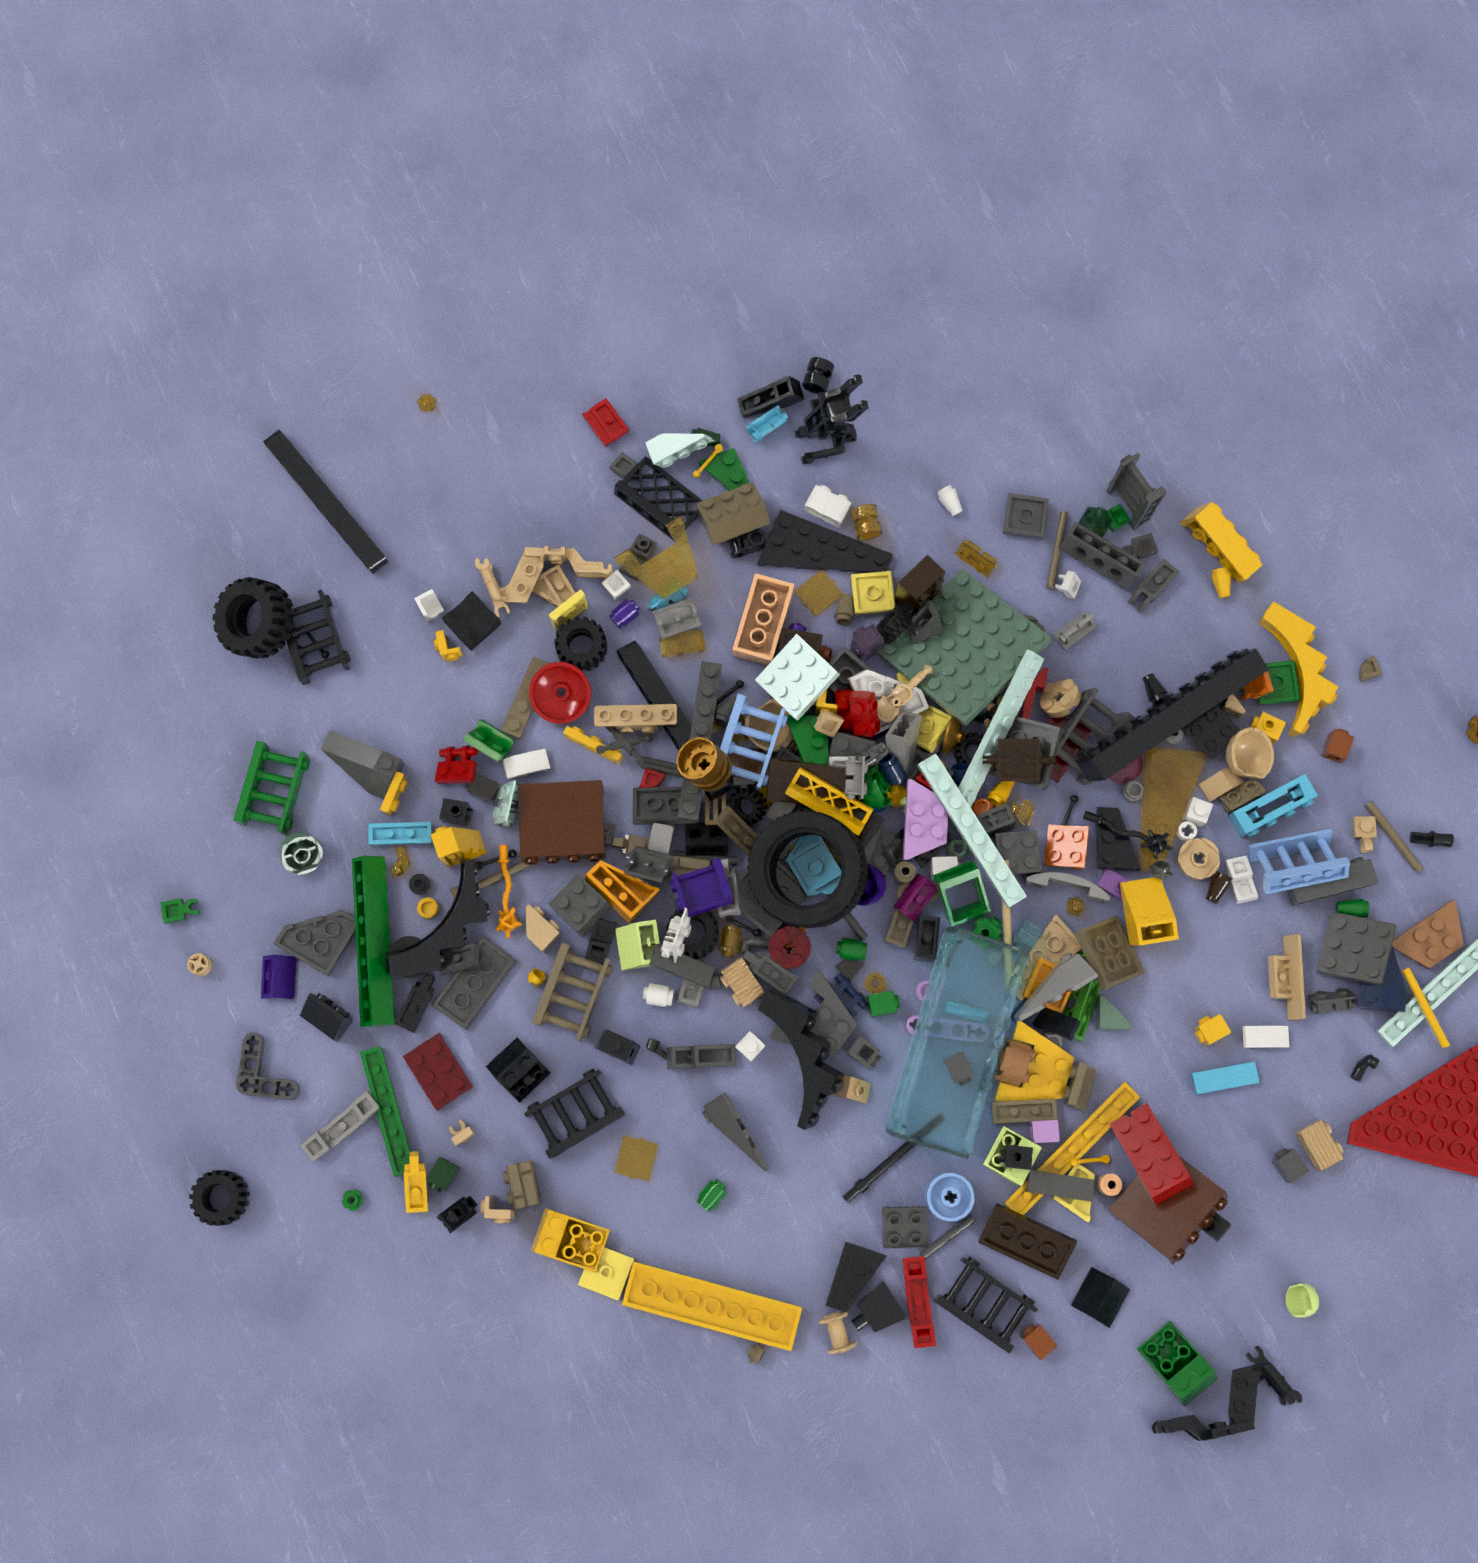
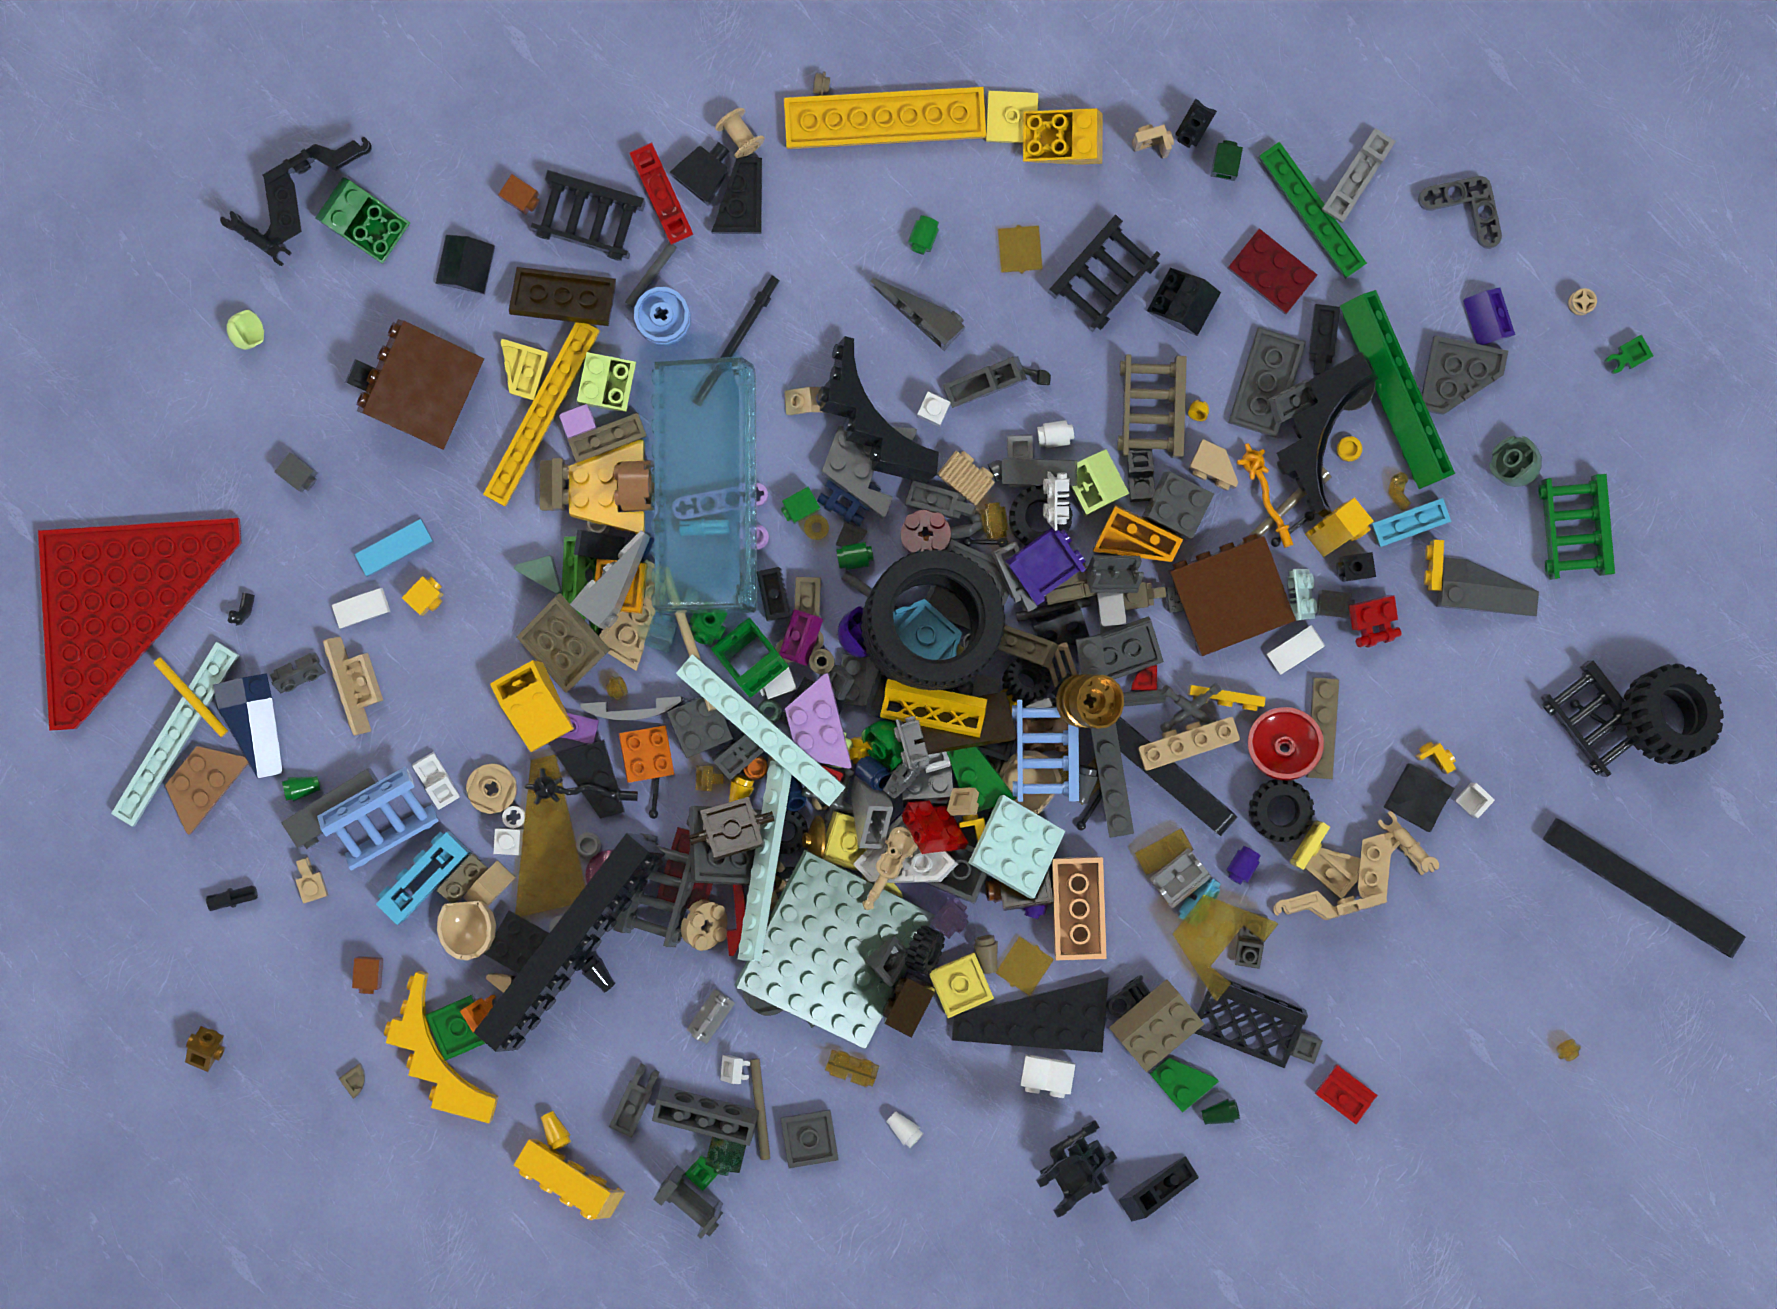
camera: 165 degrees right, 10 degrees up
(201, 1197) = (1474, 40): black tyre -> none
(325, 1017) = (1418, 289): black slope -> none
(358, 1200) = (1316, 109): green plate -> none
(415, 1185) = (1252, 139): yellow hinge -> none
(421, 890) = (1360, 472): black plate -> none
(462, 1135) = (1220, 210): tan tile -> none
(489, 740) = (1347, 661): green bracket -> none
(522, 1185) = (1135, 178): dark tan brick -> none
(616, 584) = (1265, 895): white tile -> none
(618, 1047) = (1081, 361): black torso -> none
(669, 447) = (1258, 1085): light aqua slope -> none
(718, 449) = (1200, 1103): yellow hinge -> none
(766, 423) = (1154, 1154): medium azure hinge -> none
(818, 374) = (1111, 1235): black wheel -> none
(860, 1045) = (814, 444): dark grey brick -> none
(867, 525) = (990, 1061): clear yellow wheel -> none
(904, 1226) = (701, 270): dark grey hinge -> none
(959, 1068) = (693, 458): dark grey brick -> none
(1016, 1157) = (602, 378): black brick -> none
(1060, 1185) = (543, 367): dark grey tile -> none
(1102, 1184) = (497, 389): light nougat brick -> none
(1104, 1159) = (502, 415): yellow hinge -> none
(1142, 546) = (661, 1145): clear smoke plate -> none
(1151, 1154) = (454, 431): red piece -> none
(1160, 869) = (531, 759): dark grey plate -> none
(1218, 886) = (460, 763): dark brown cone -> none
(1269, 724) = (454, 969): yellow brick -> none
(1320, 1144) = (268, 506): tan brick -> none
(1356, 948) = (286, 739): dark grey plate -> none
(1394, 837) = (274, 887): dark tan bar -> none

